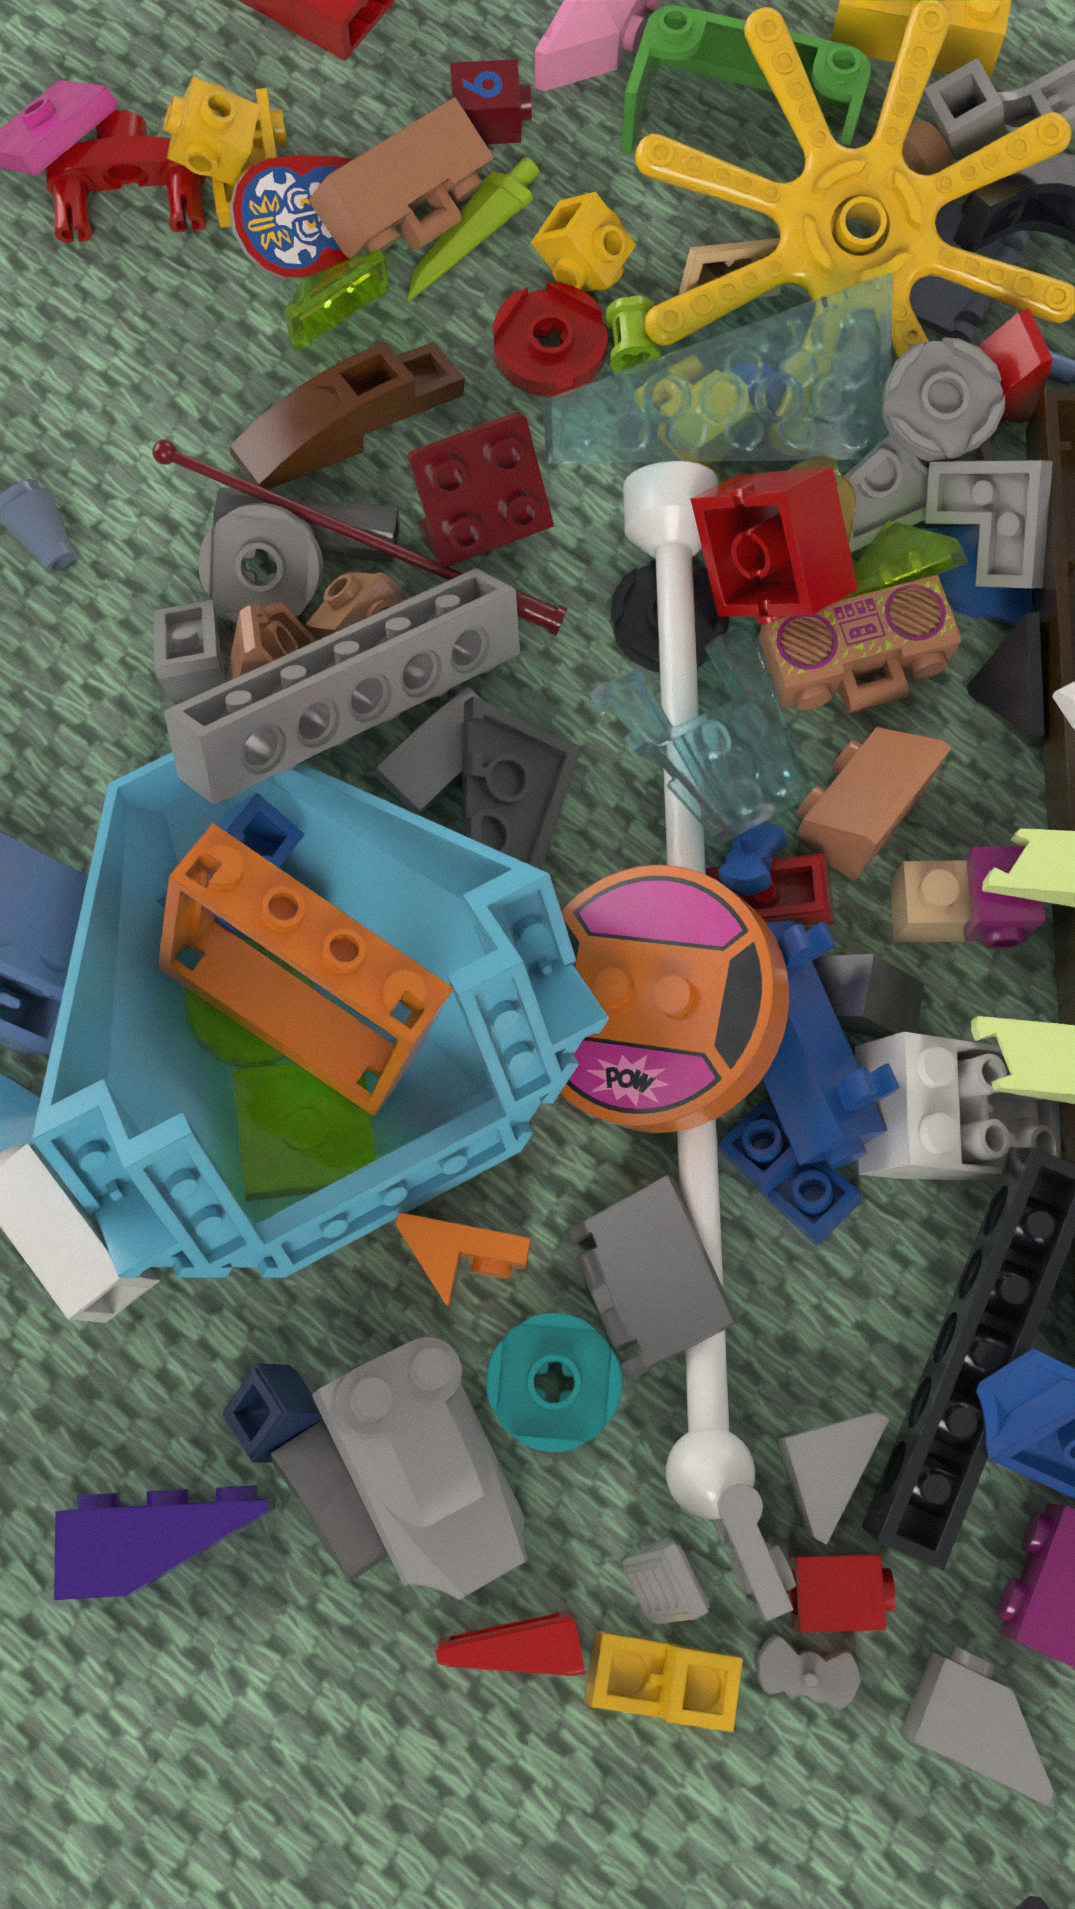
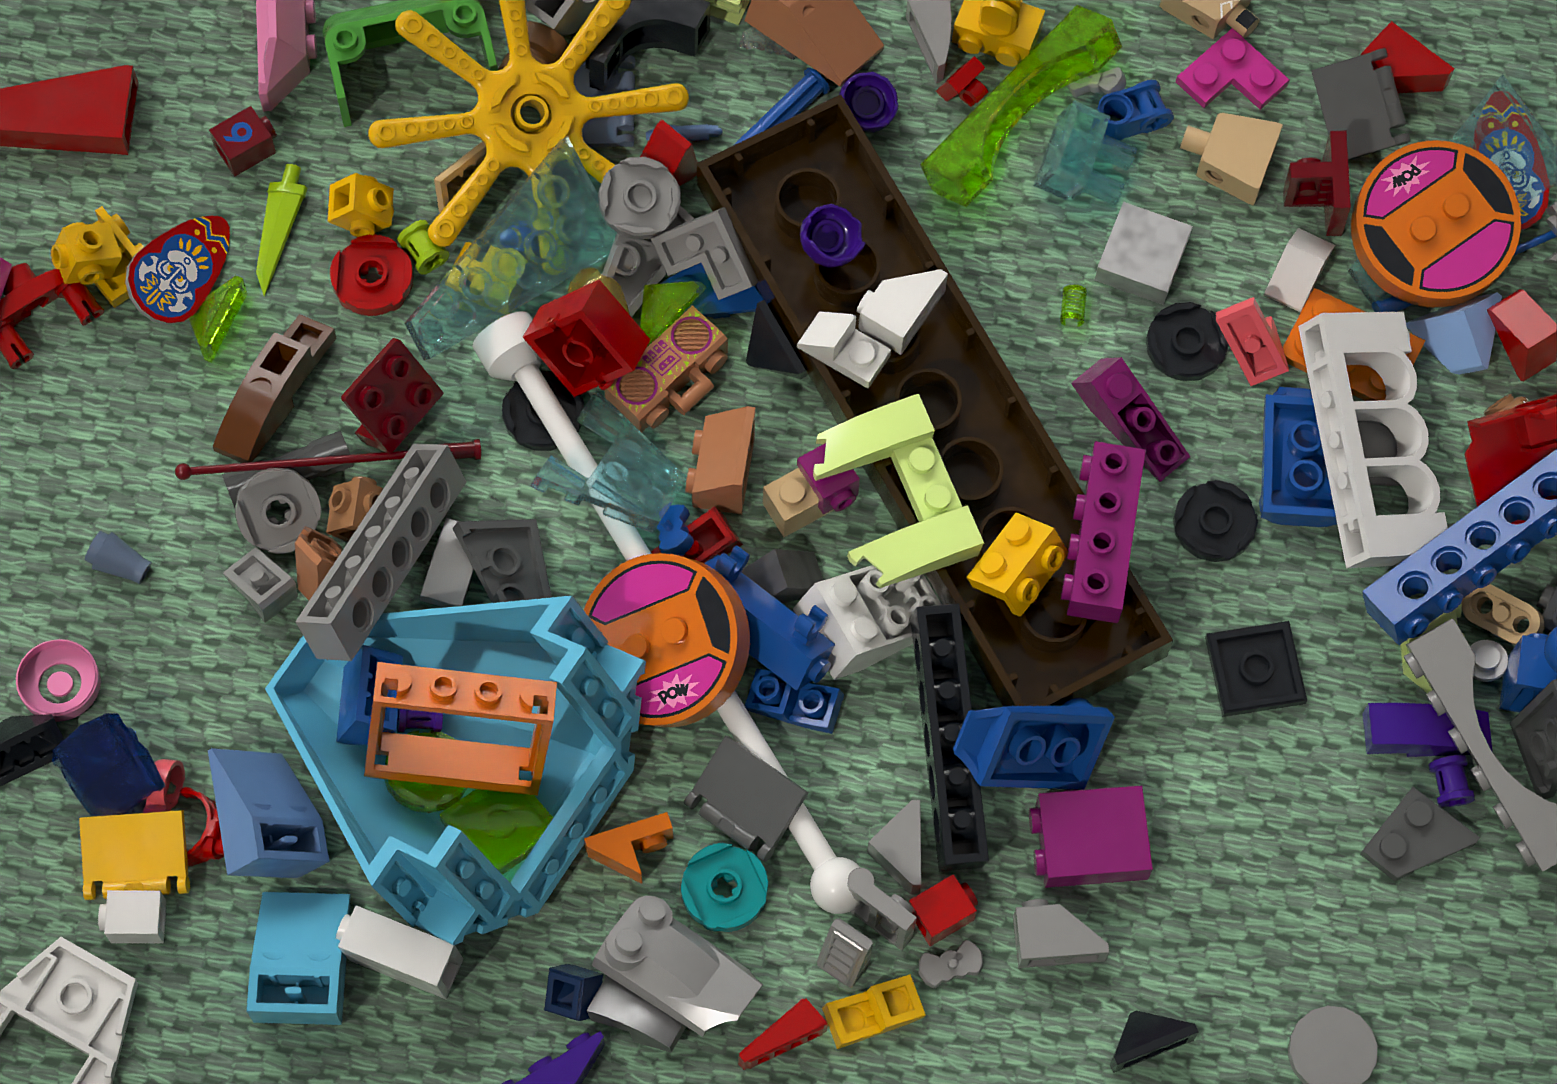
camera: 30 degrees left, 5 degrees down
(385, 184) = (214, 234): nougat piece -> none

